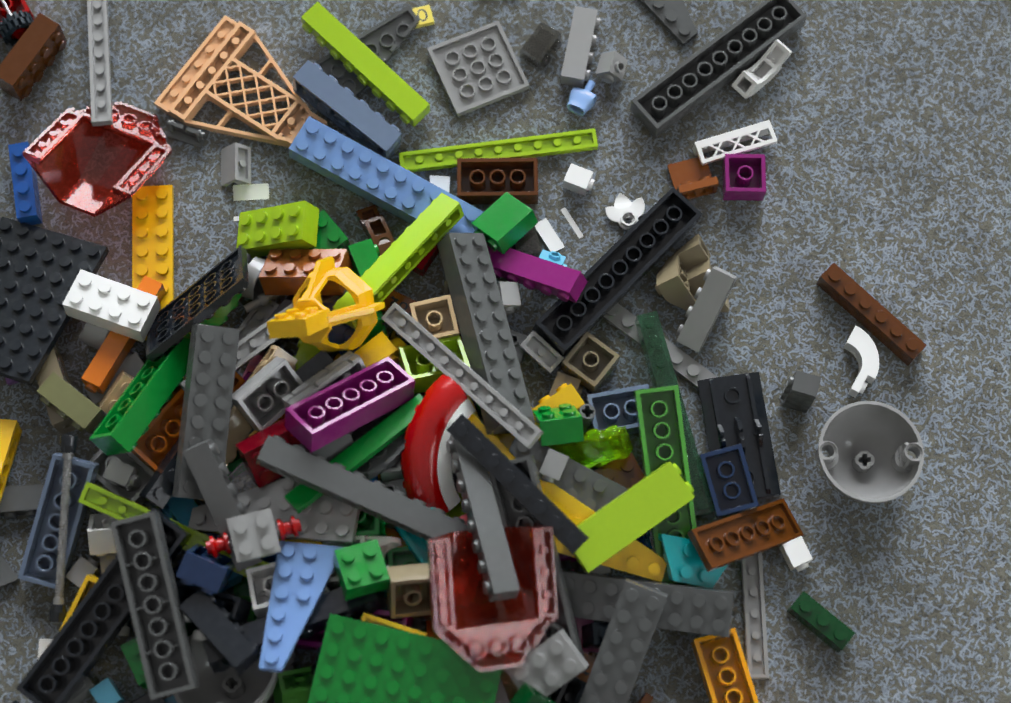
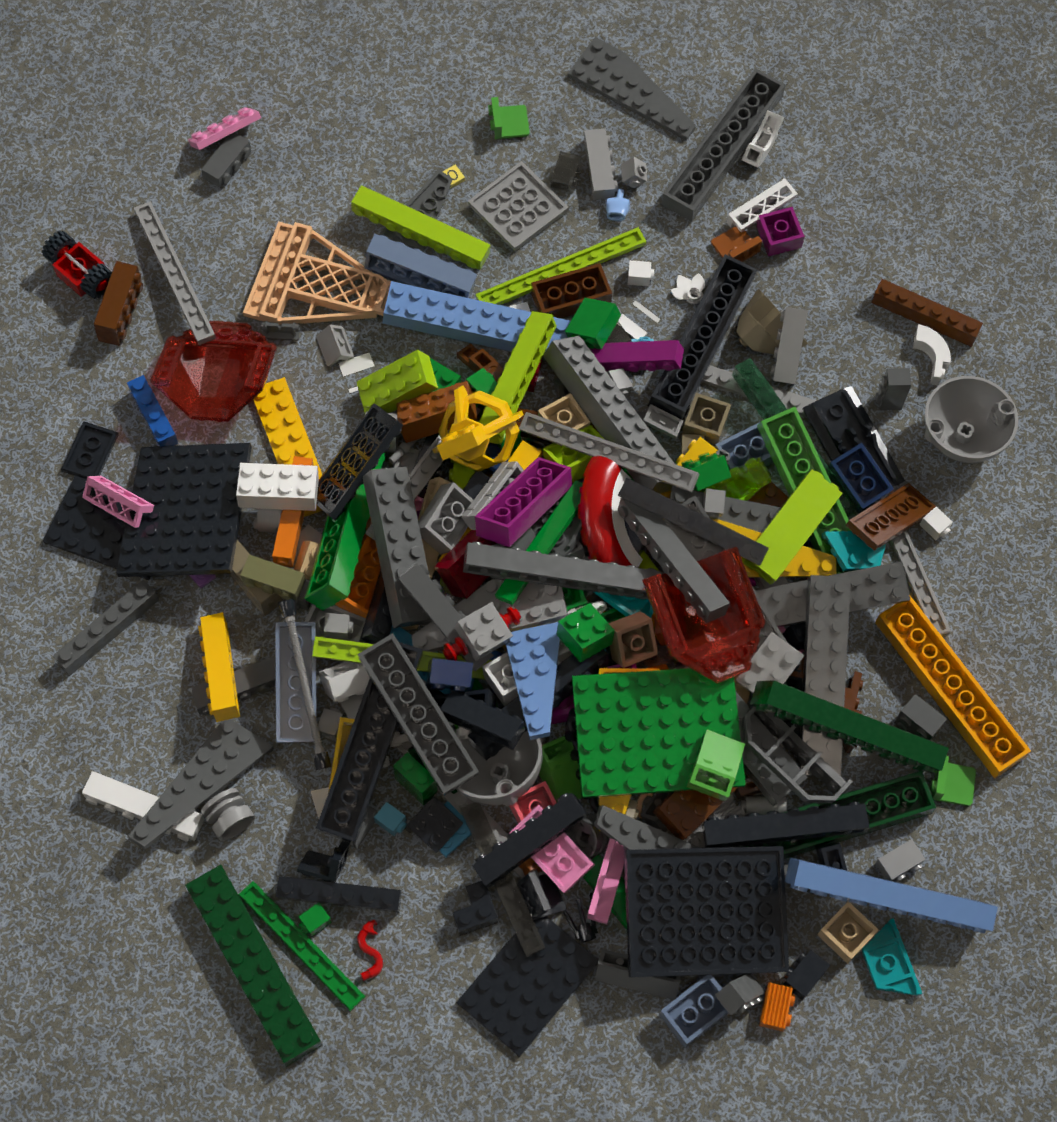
camera: 20 degrees left, 5 degrees down
(821, 622) = (977, 571): dark green brick -> none

